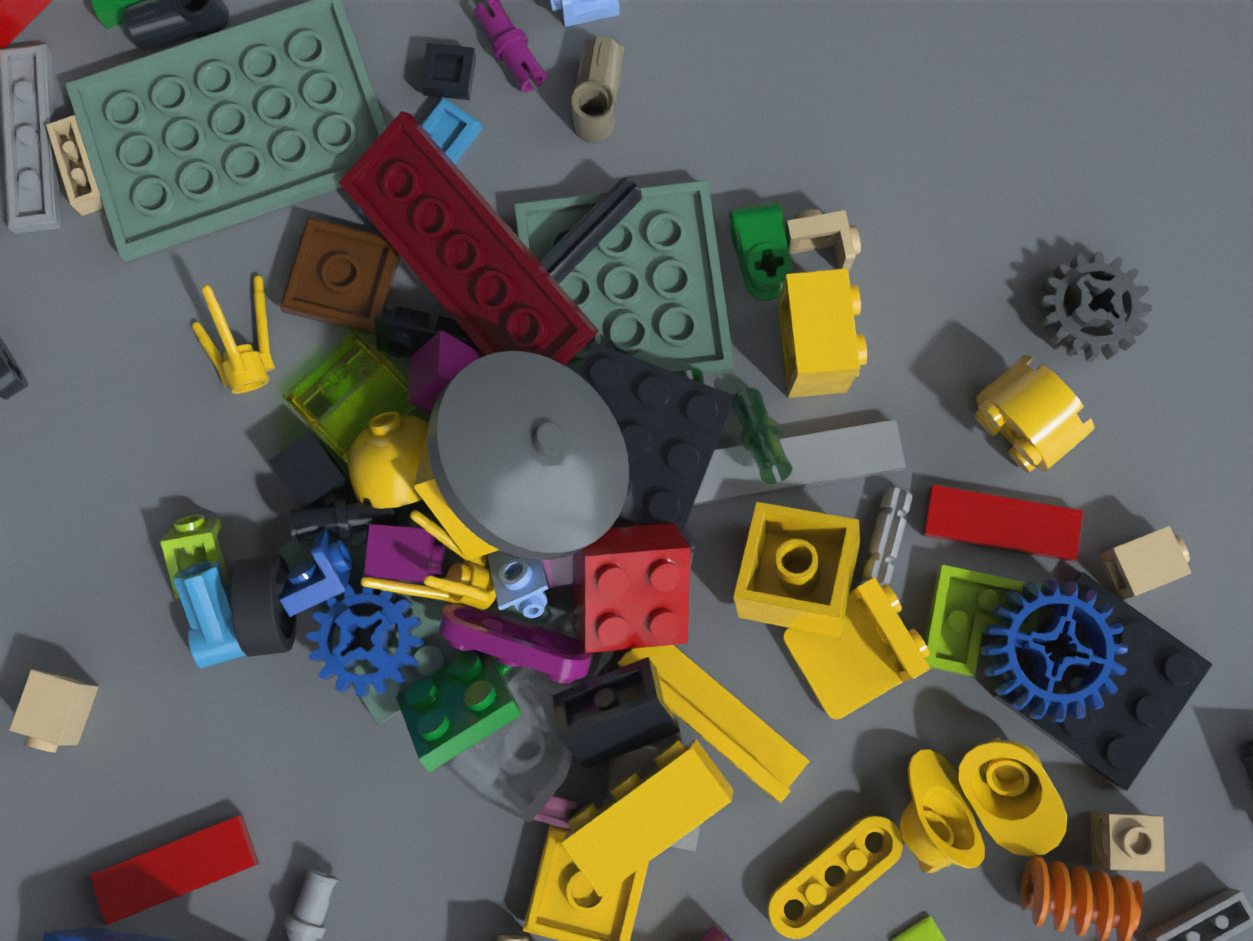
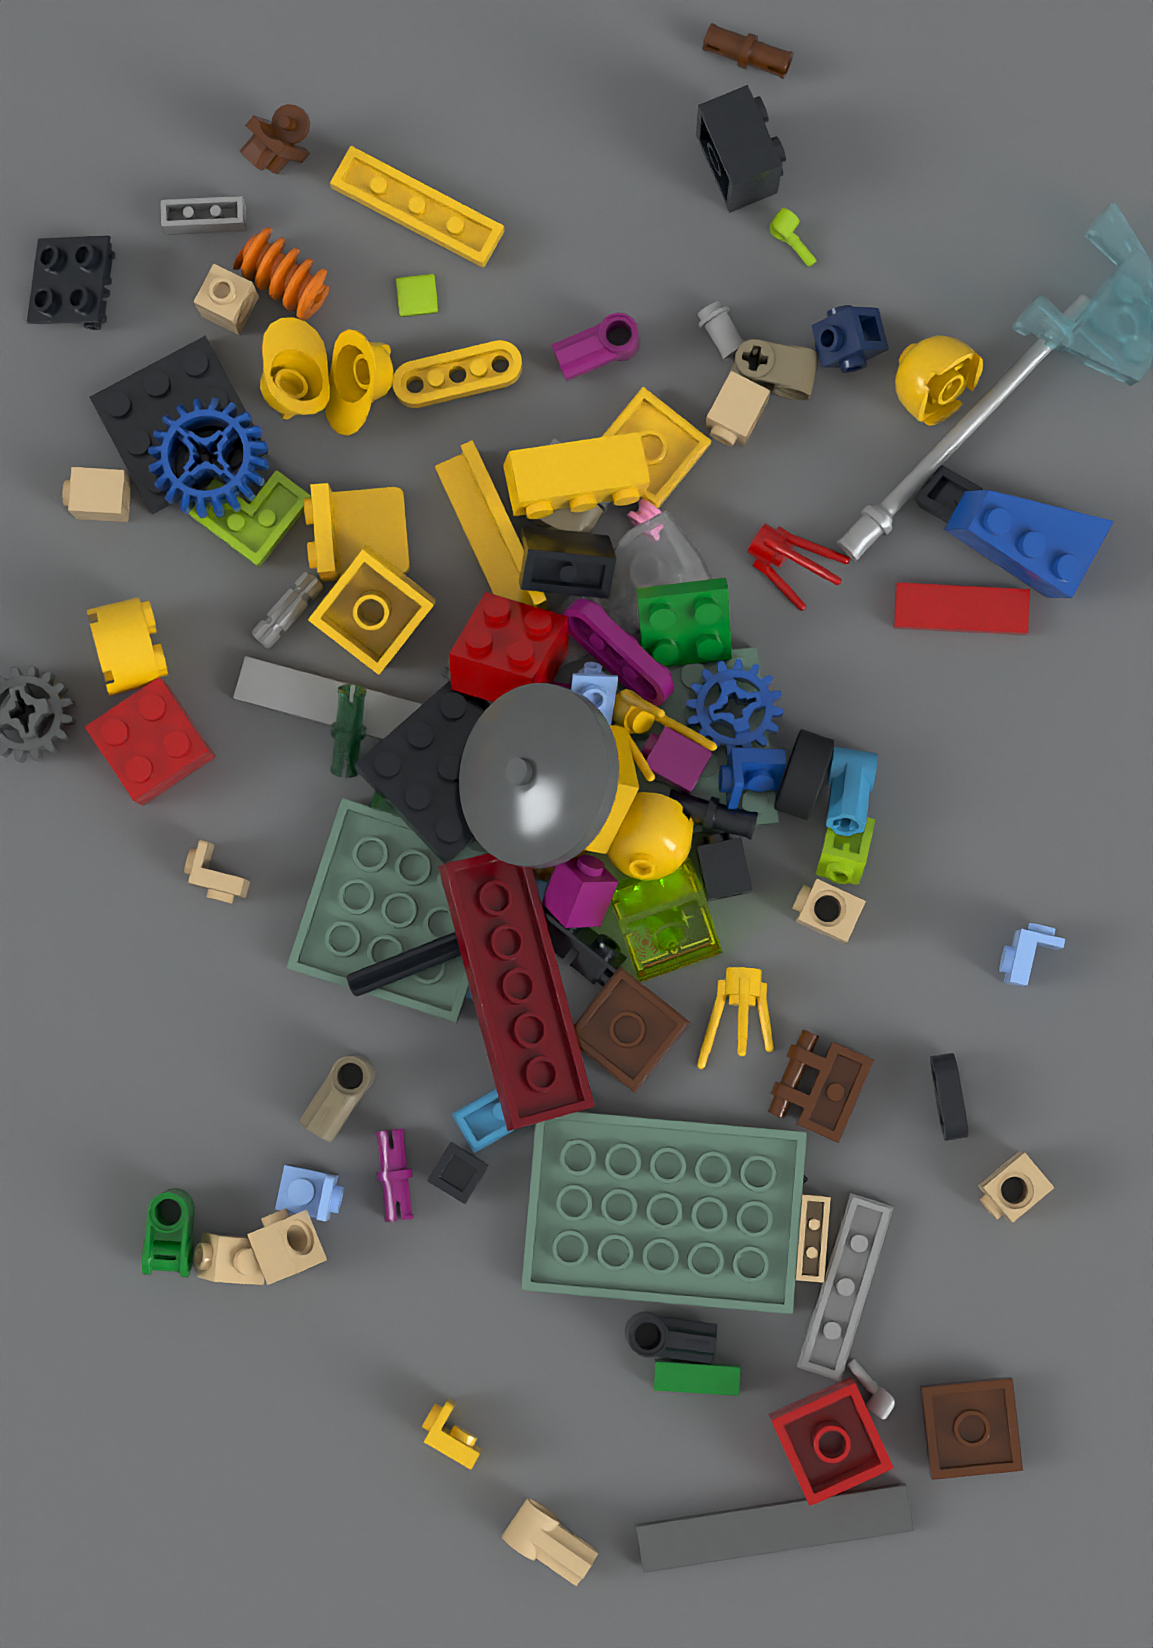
camera: 150 degrees left, 5 degrees up
(53, 710) = (1007, 772): tan brick -> none
(110, 309) = (833, 1091): none -> reddish brown plate
(165, 475) = (848, 910): none -> tan brick
(404, 840) = (776, 545): none -> red plant
(761, 242) = (269, 900): green piece -> none
(820, 332) = (261, 787): yellow brick -> none
(957, 334) = (150, 741): none -> red brick
(1003, 523) = (191, 578): red tile -> none

